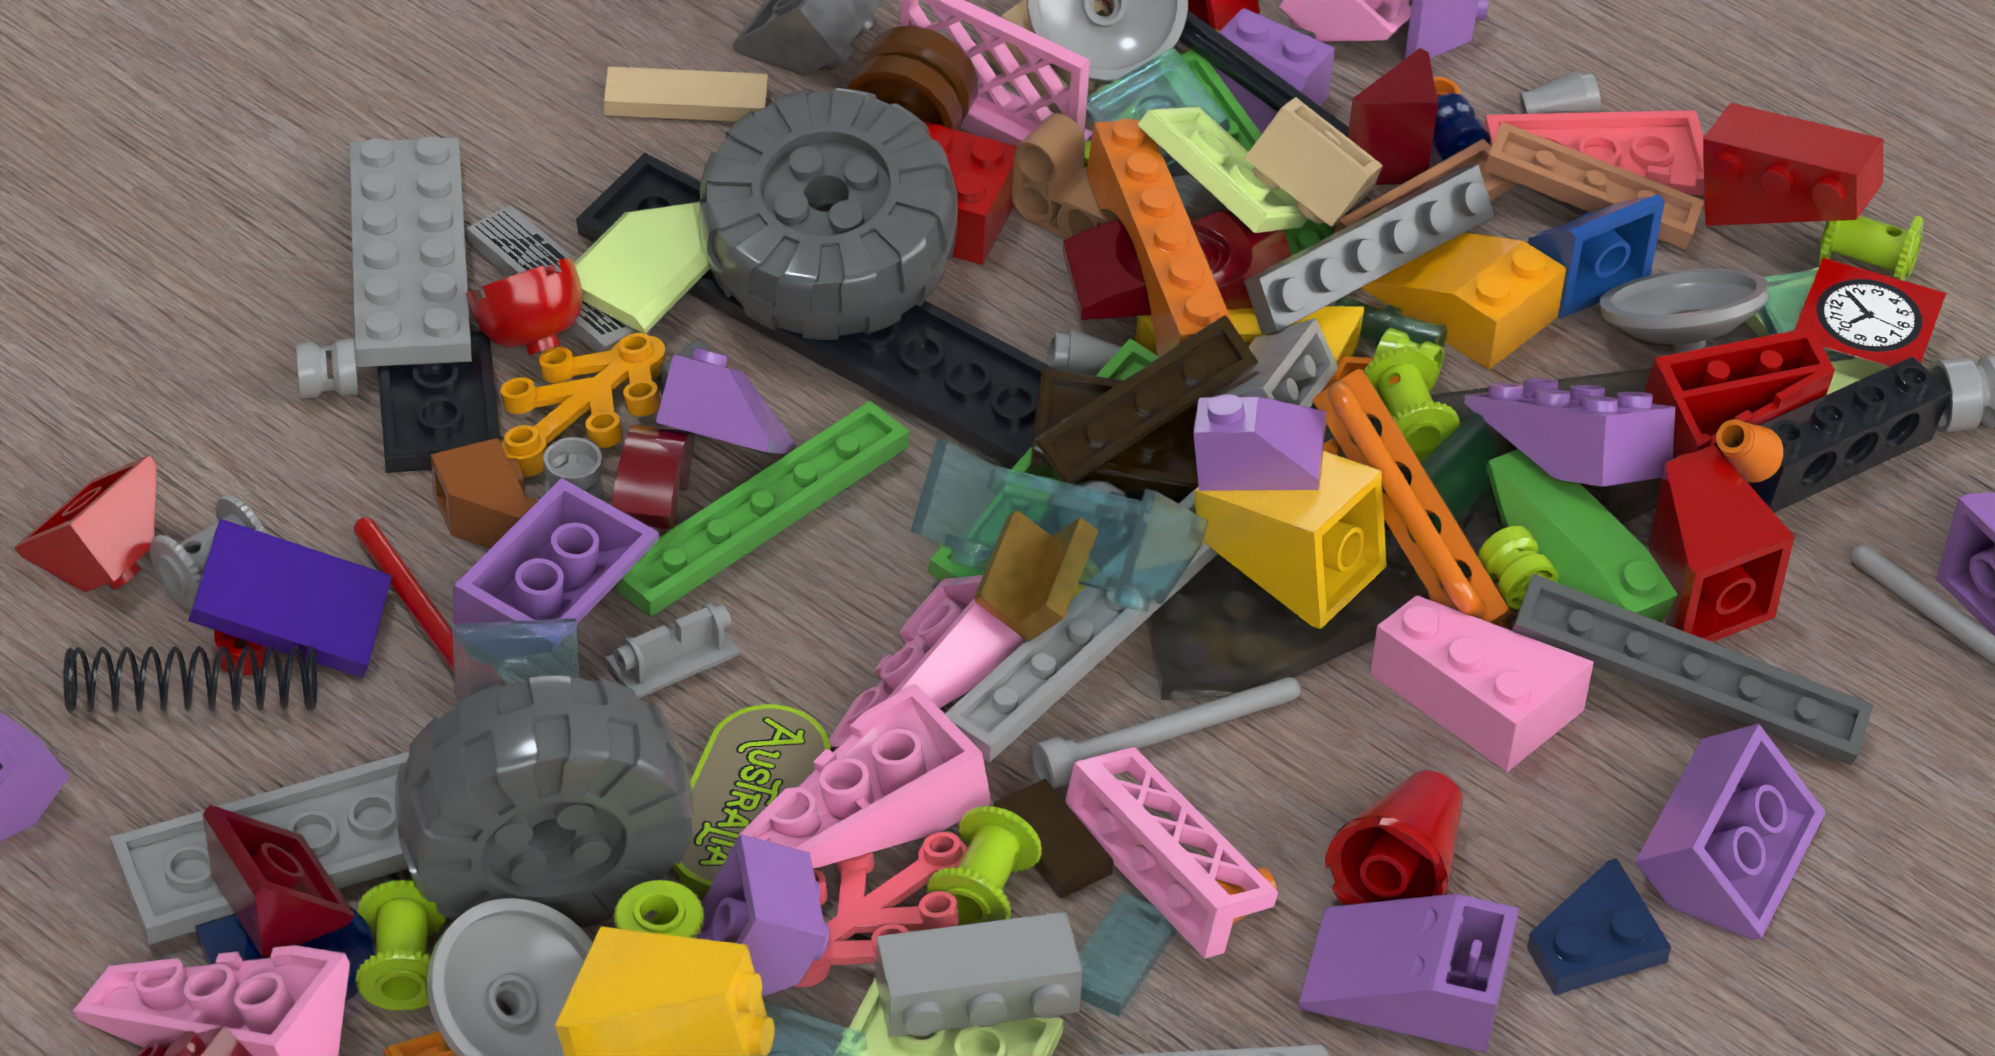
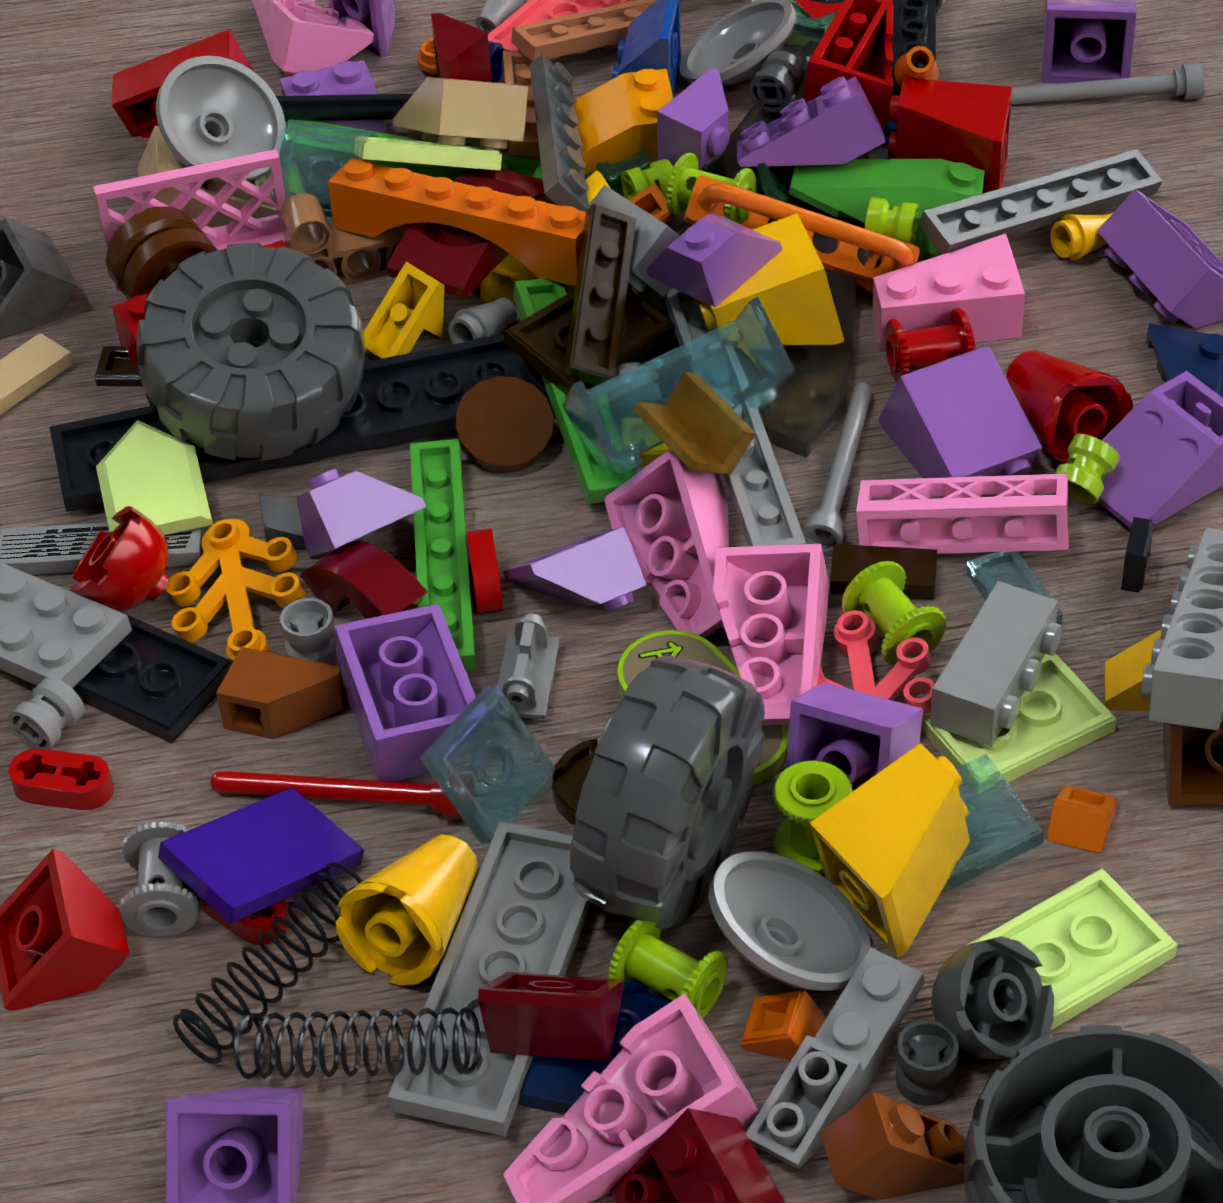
camera: 45 degrees left, 0 degrees up
(150, 753) = (296, 1052): none -> black piece
(264, 428) = (61, 779): none -> red beam
(321, 727) = (408, 910): none -> yellow cone
(765, 549) = (484, 571): none -> red beam
(824, 617) = (586, 571): none -> slope
(967, 423) = (504, 424): none -> reddish brown tile
(1026, 293) = (407, 309): none -> yellow slope
(1252, 1016) = (1137, 554): none -> black tile
(1289, 780) = (960, 420): none -> medium lavender slope
(1320, 907) = (1086, 466): none -> lime wheel
(1387, 700) = (927, 346): none -> red hose
(1503, 335) = (694, 121): none -> medium lavender slope
(1632, 359) = (777, 81): none -> dark grey wheel
(1689, 724) = (1077, 235): none -> yellow cone

